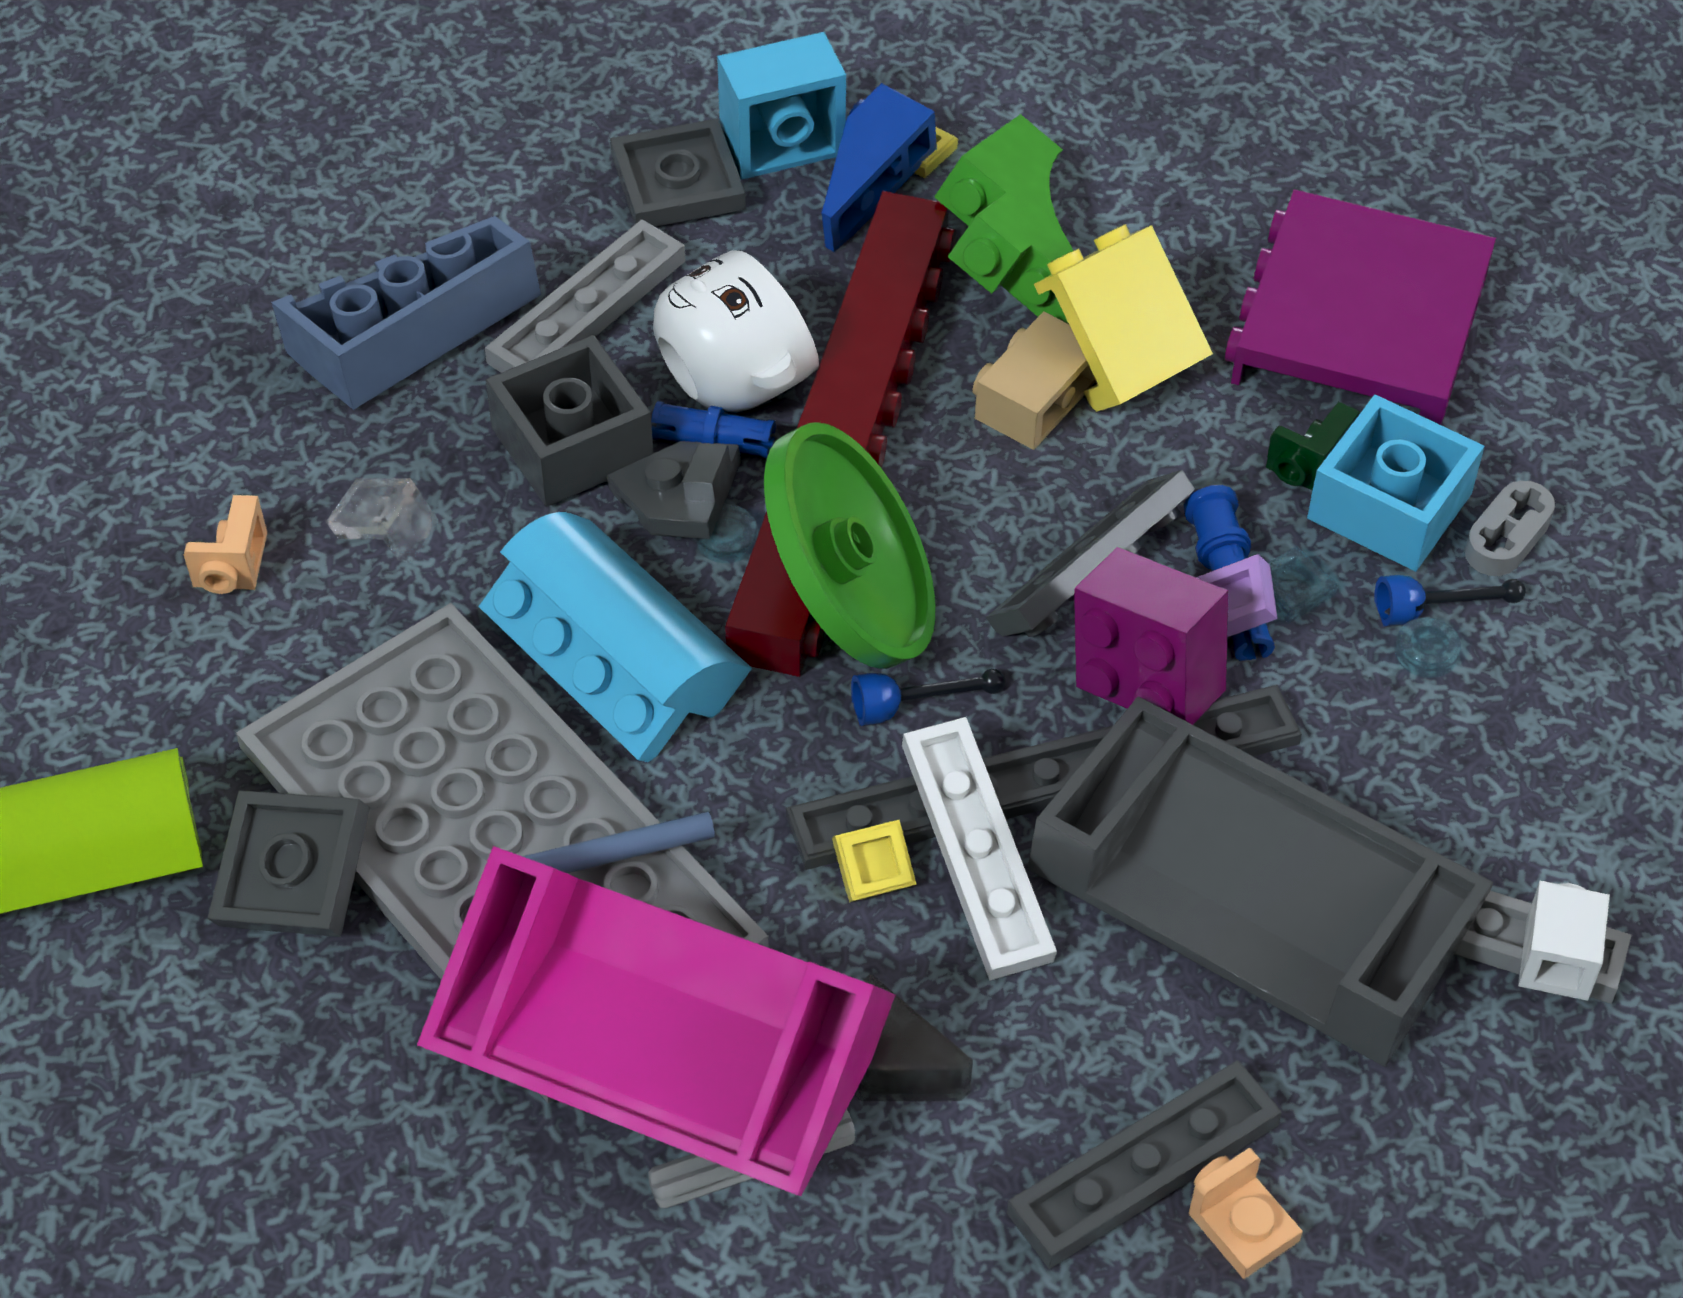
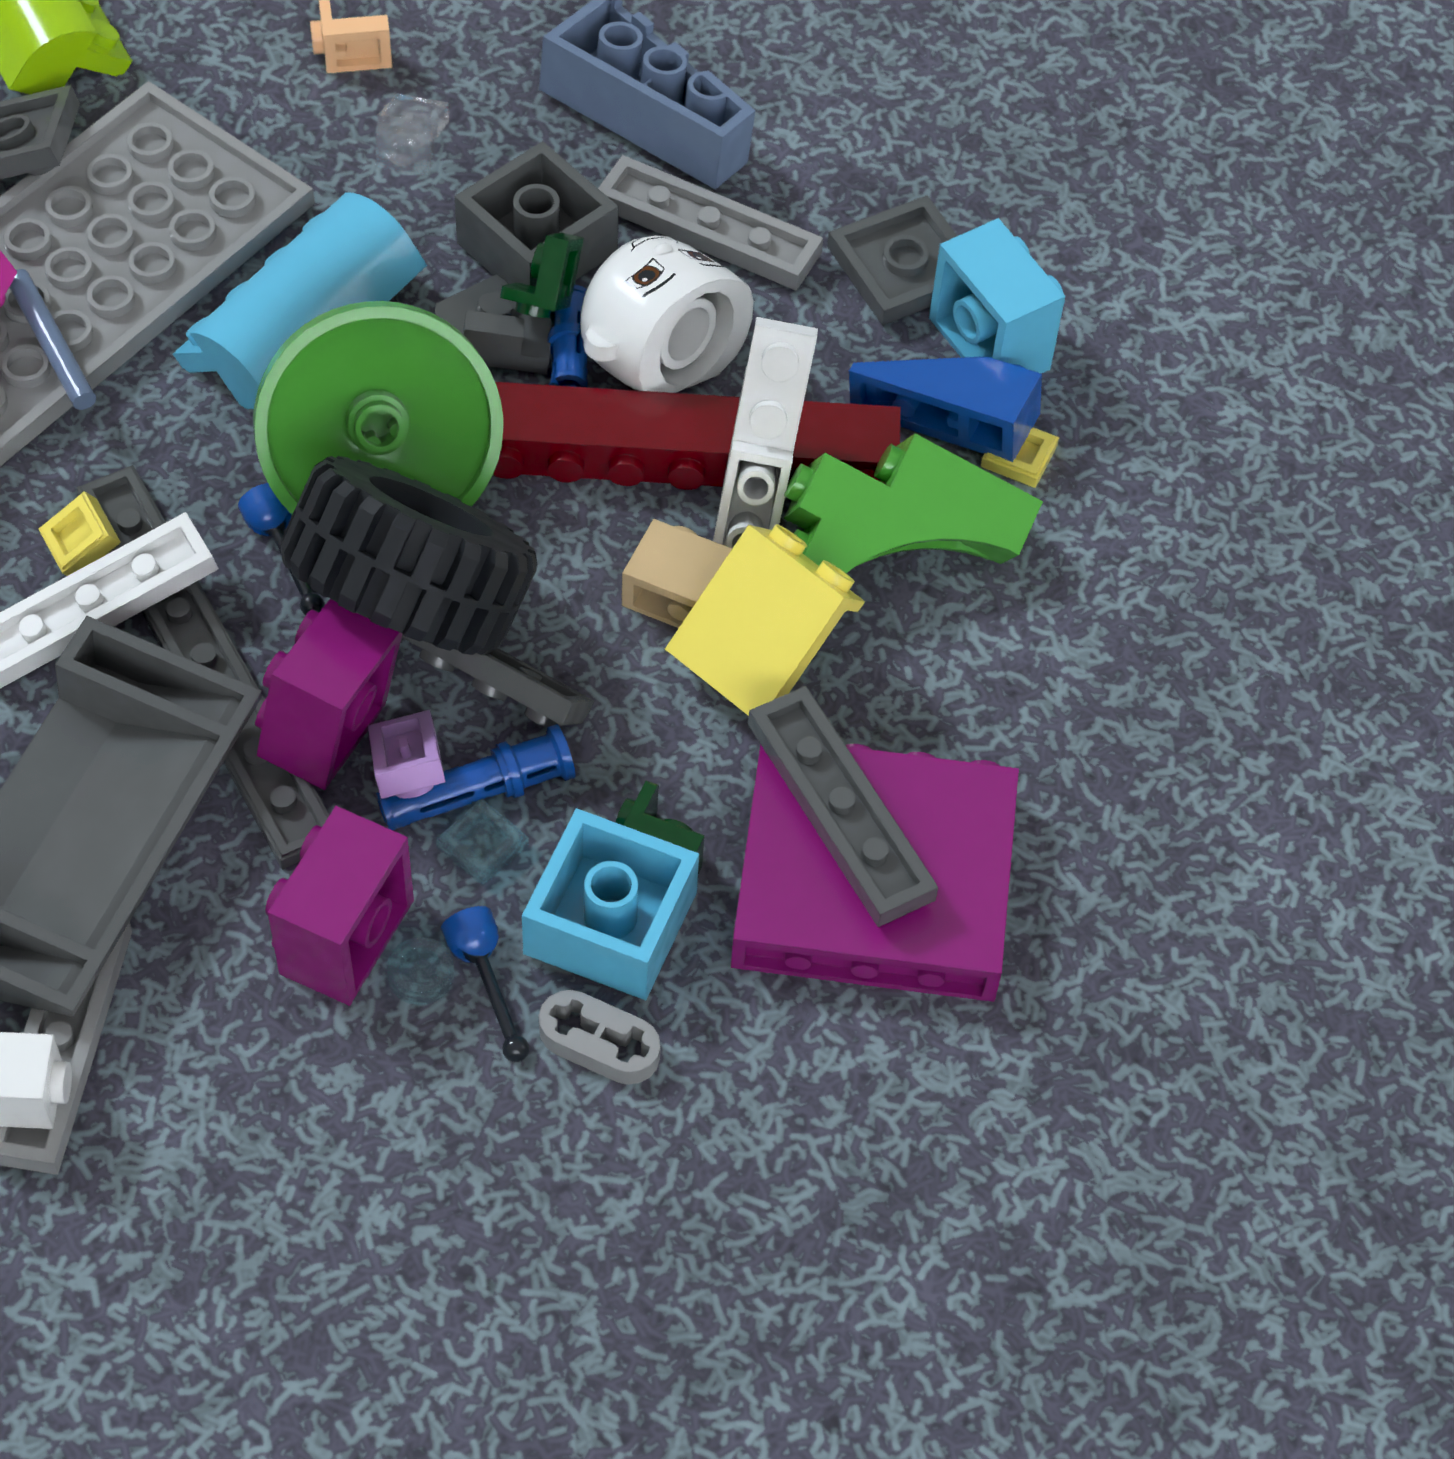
camera: 75 degrees right, 5 degrees up
(676, 396) = (555, 269): none -> dark green bracket
(934, 286) = (765, 428): none -> white slope
(1030, 535) = (407, 556): none -> black tyre
(1333, 293) = (842, 806): none -> dark grey plate
(1389, 665) = (340, 904): none -> magenta brick

